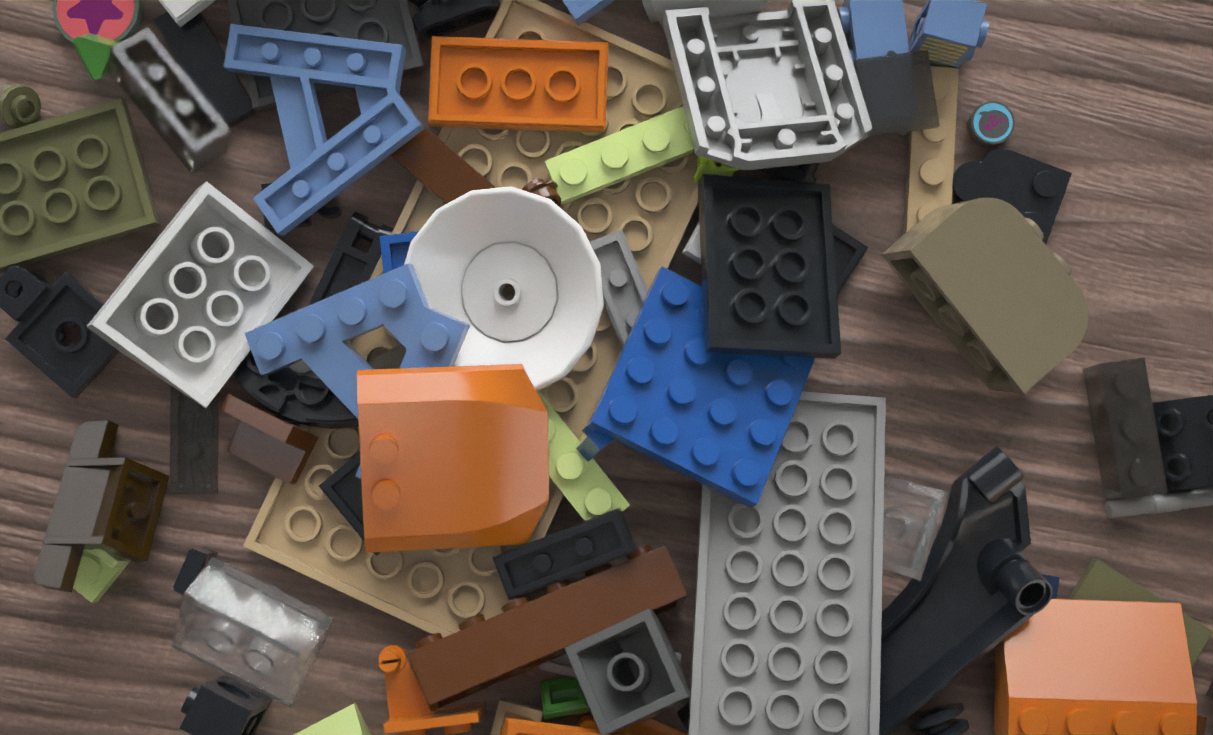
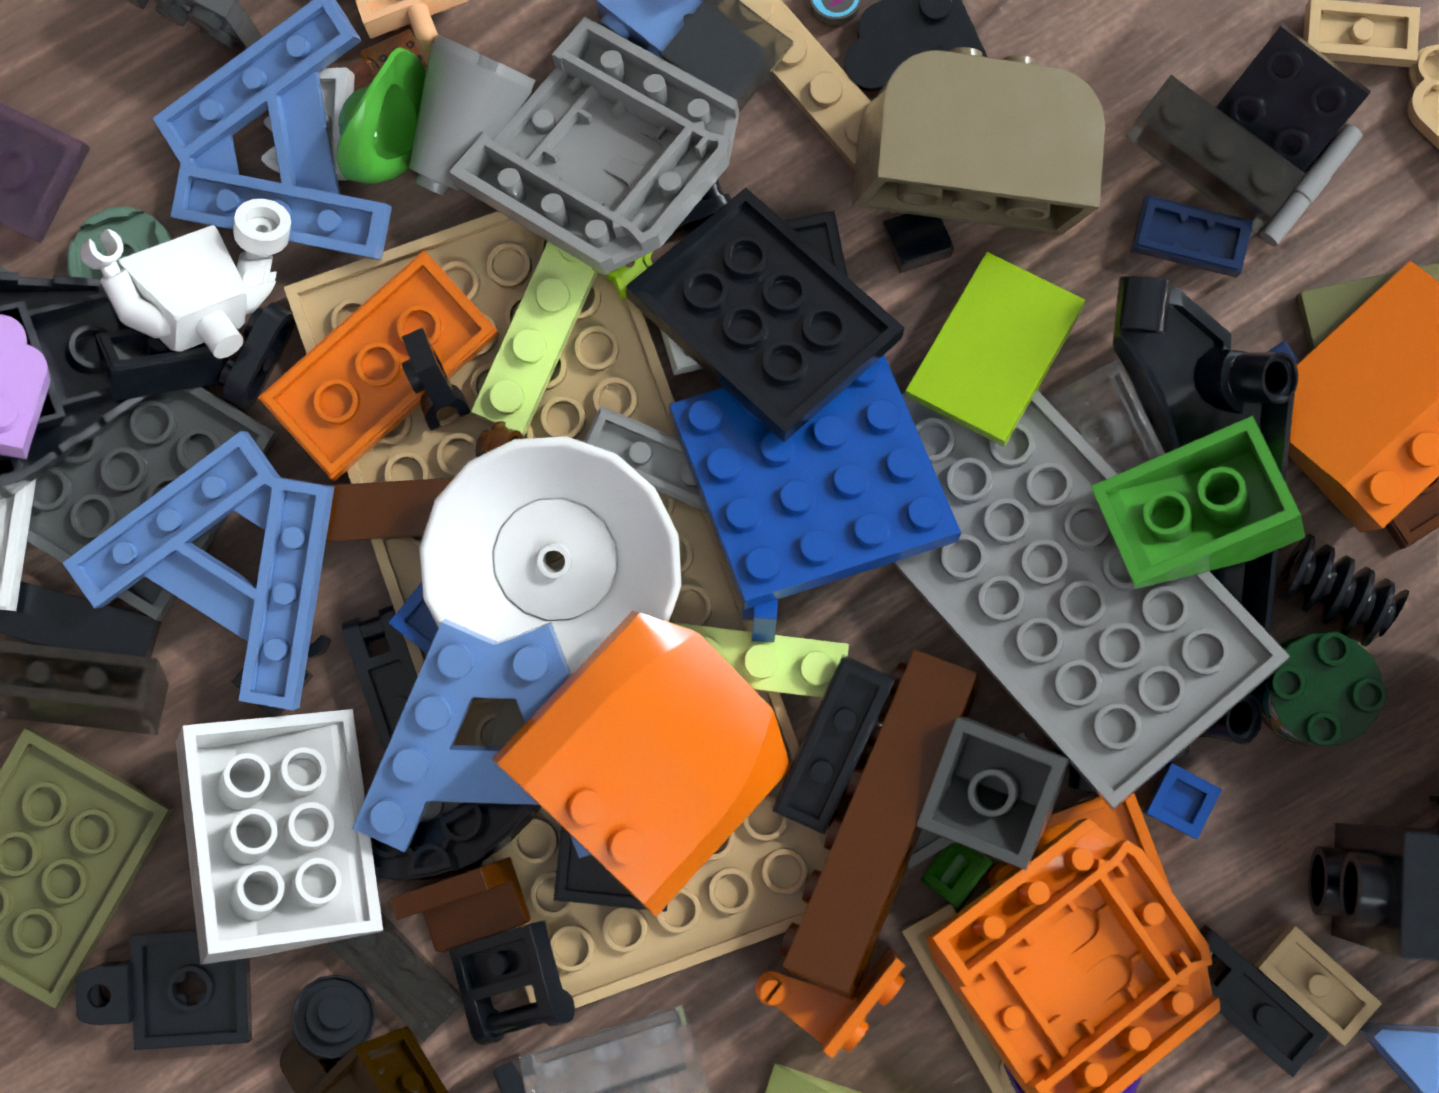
camera: 35 degrees left, 0 degrees up
(132, 429) = (332, 1017): none -> black plate
(255, 495) = (505, 964): none -> black plate
(540, 114) = (427, 373): none -> black plate
(883, 417) = (995, 348): none -> lime tile
(900, 311) = (917, 240): none -> black slope
(911, 626) = (1200, 507): none -> bright green slope
(1064, 464) = (1191, 236): none -> dark blue plate

